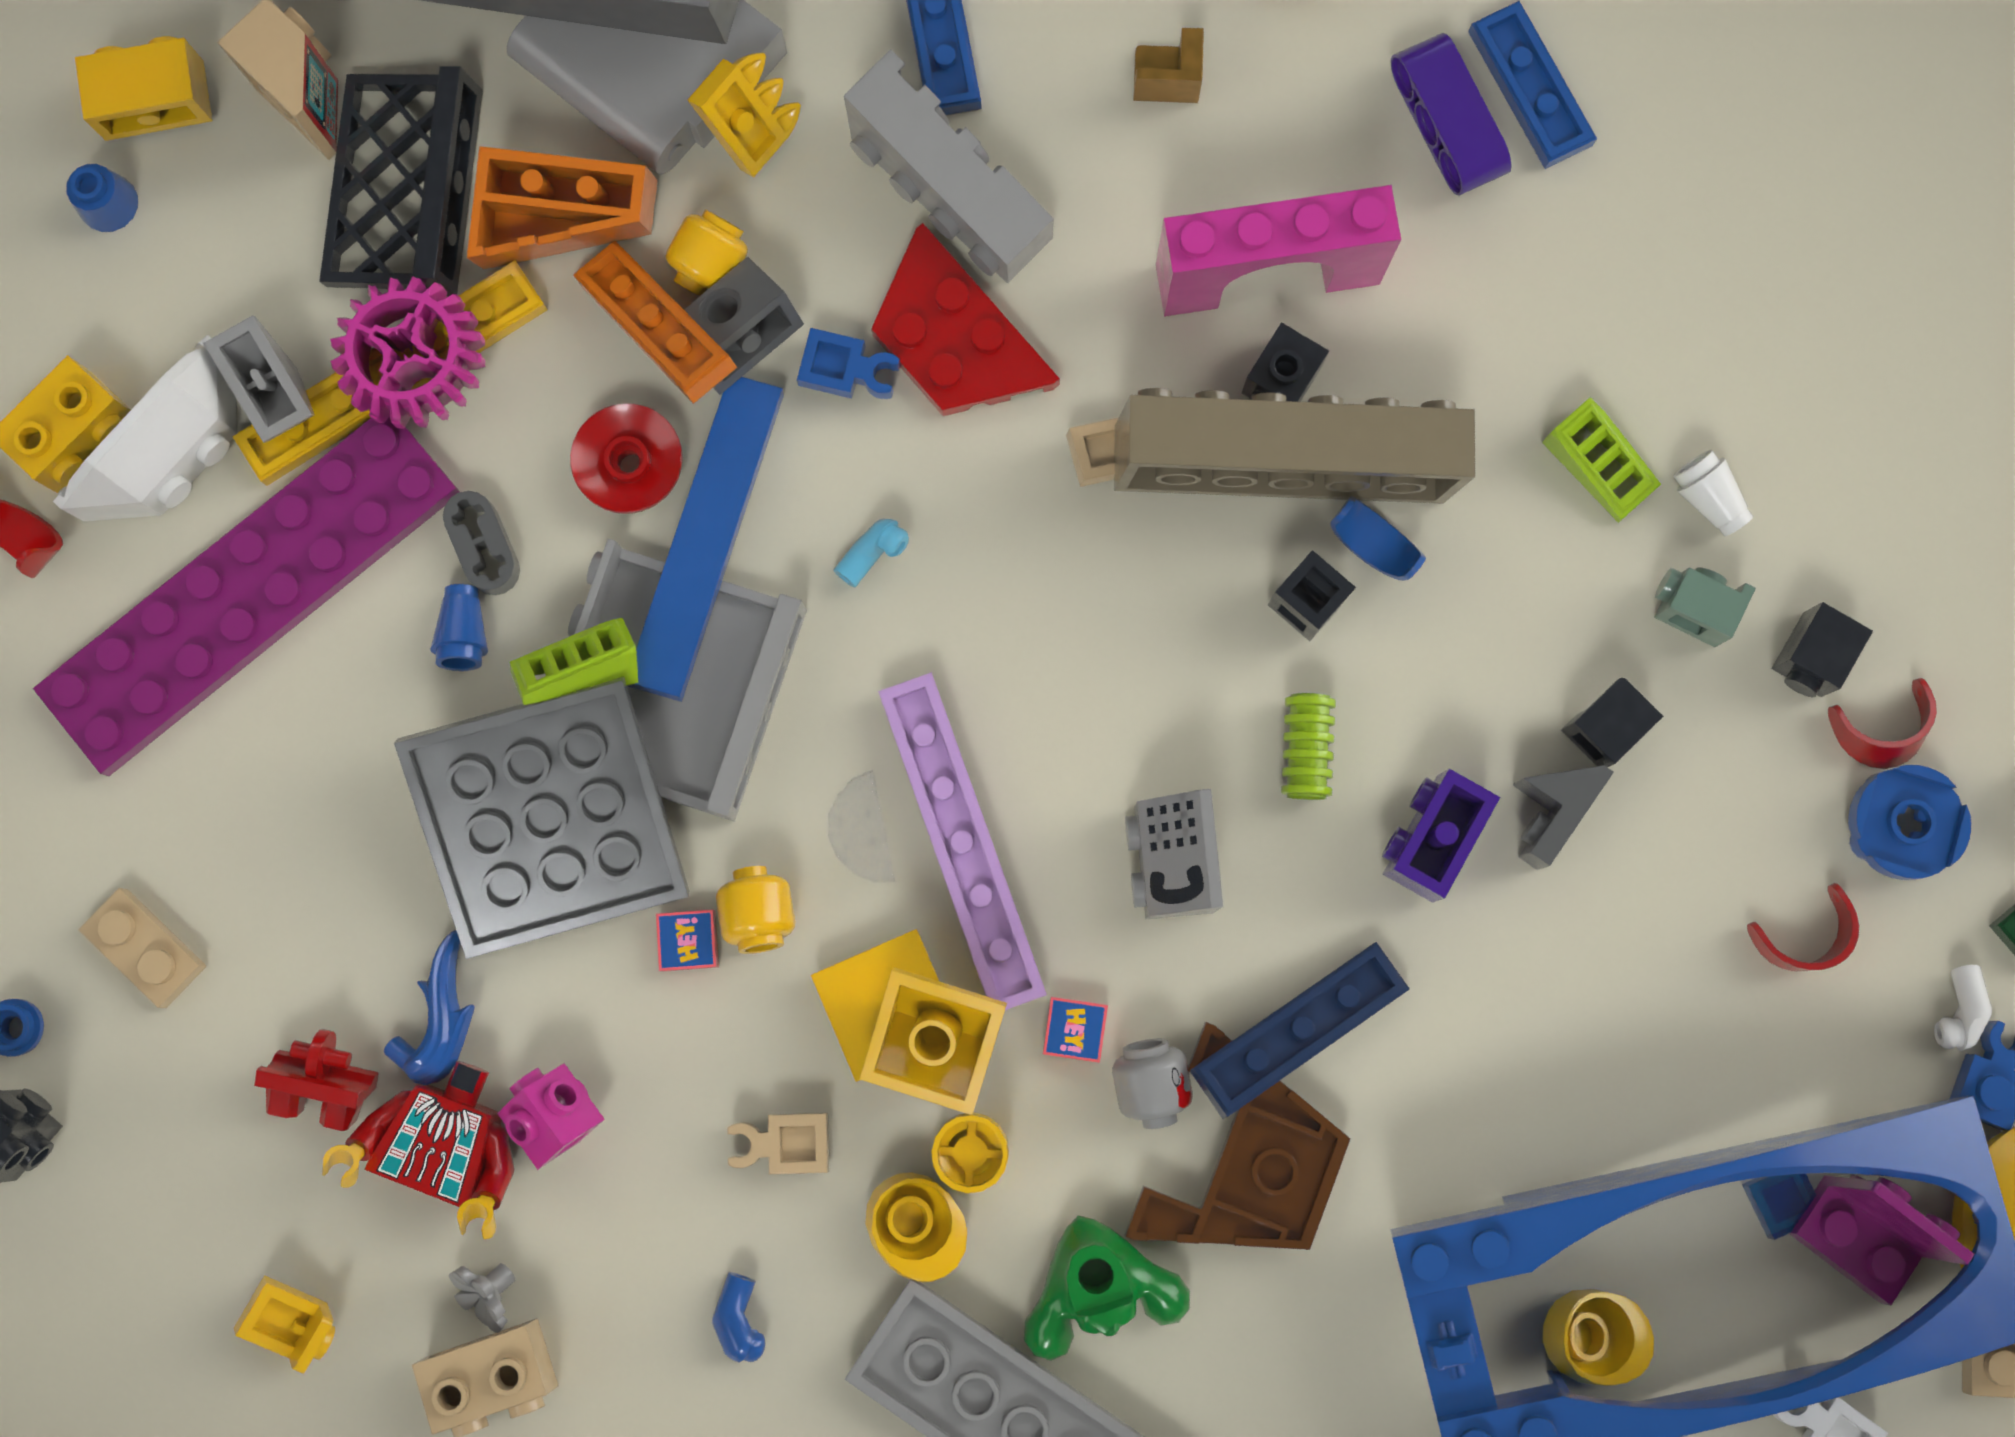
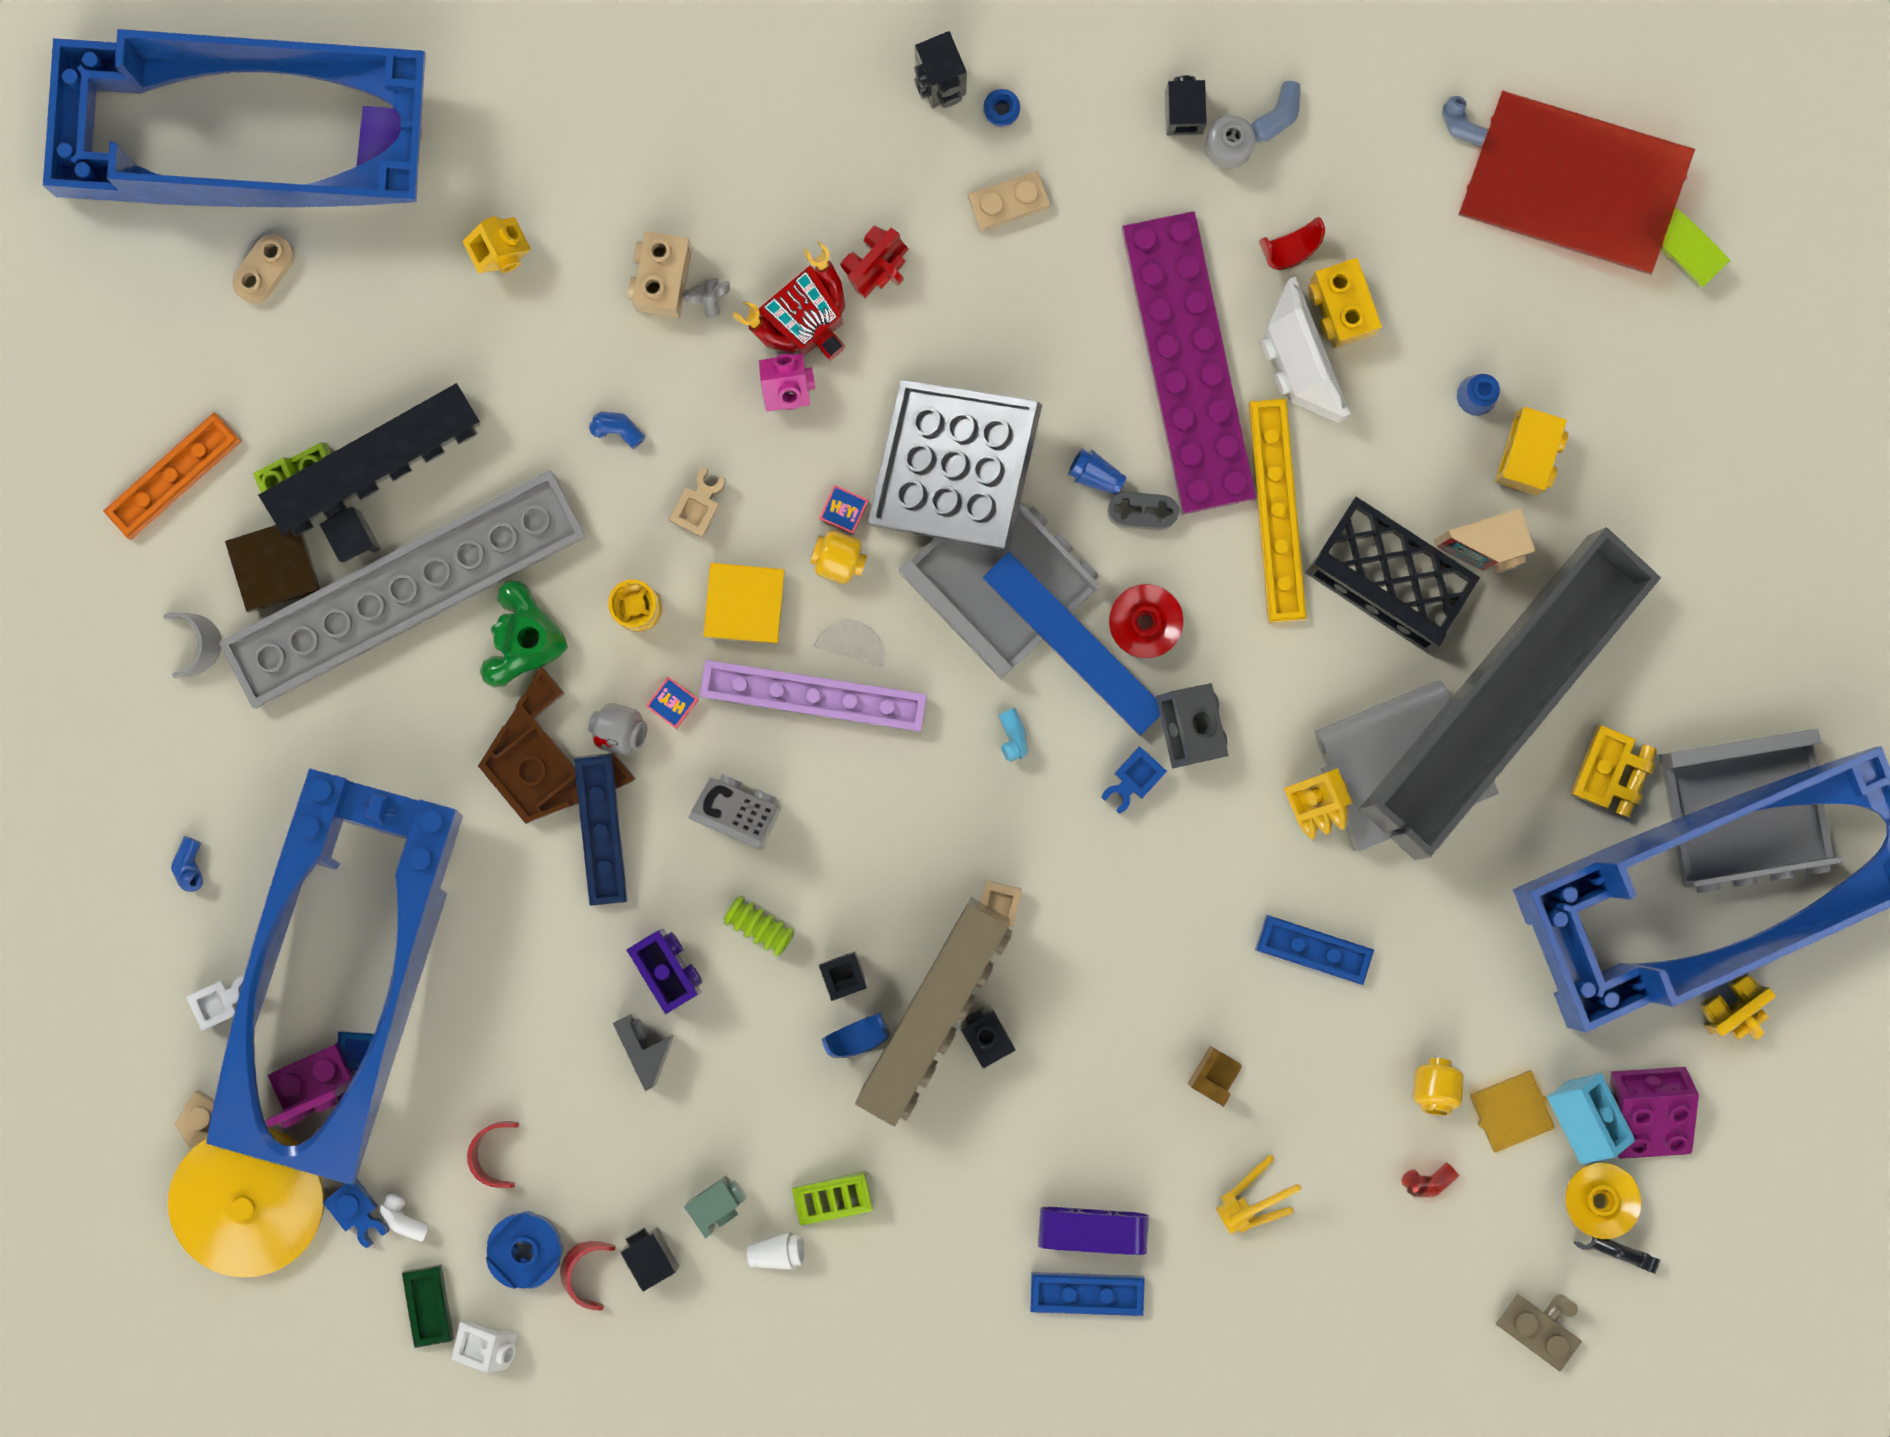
camera: 115 degrees right, 5 degrees up
(261, 378) = (1305, 432): light grey slope -> none
(287, 1323) = (750, 180): yellow bracket -> none
(421, 313) = (1266, 511): dark pink gear -> none
(446, 1022) = (870, 350): blue piece -> none
(554, 205) = (1324, 659): orange wedge -> none
(577, 663) = (1031, 550): lime slope -> none
(655, 322) = (1217, 679): orange tile -> none
(705, 251) = (1248, 734): yellow head -> none
(916, 1227) = (611, 553): yellow hat -> none
(933, 1041) = (704, 616): yellow slope -> none
(944, 171) = (1217, 903): light grey wedge -> none
(953, 334) = (1120, 855): red wing -> none
(1343, 231) = (1068, 1050): dark pink arch -> none
(1598, 1337) = (341, 900): yellow hat -> none
(1612, 723) = (674, 1110): black panel -> none

